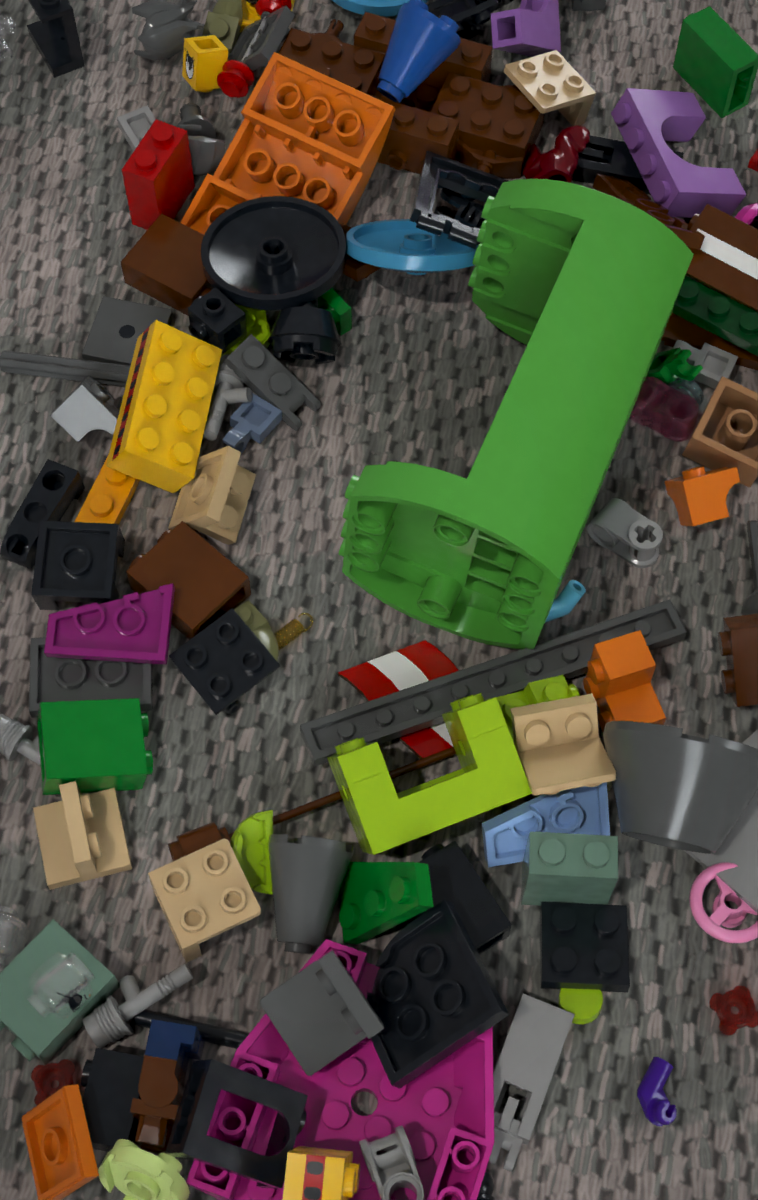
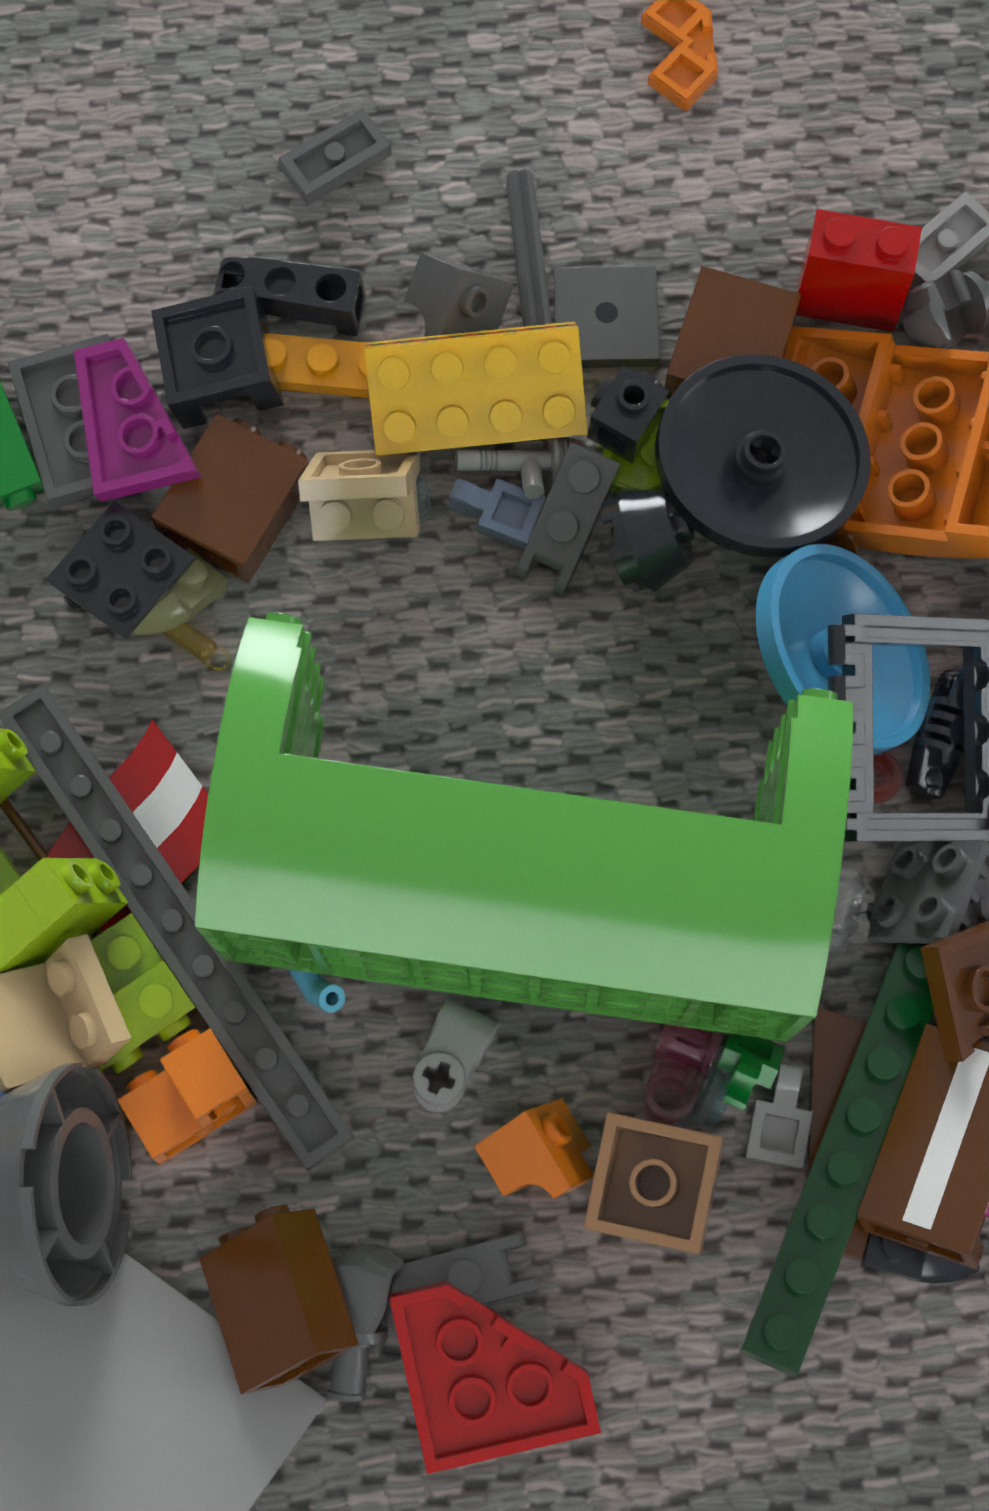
camera: 75 degrees right, 10 degrees up
(339, 308) = (713, 572): green plate -> none

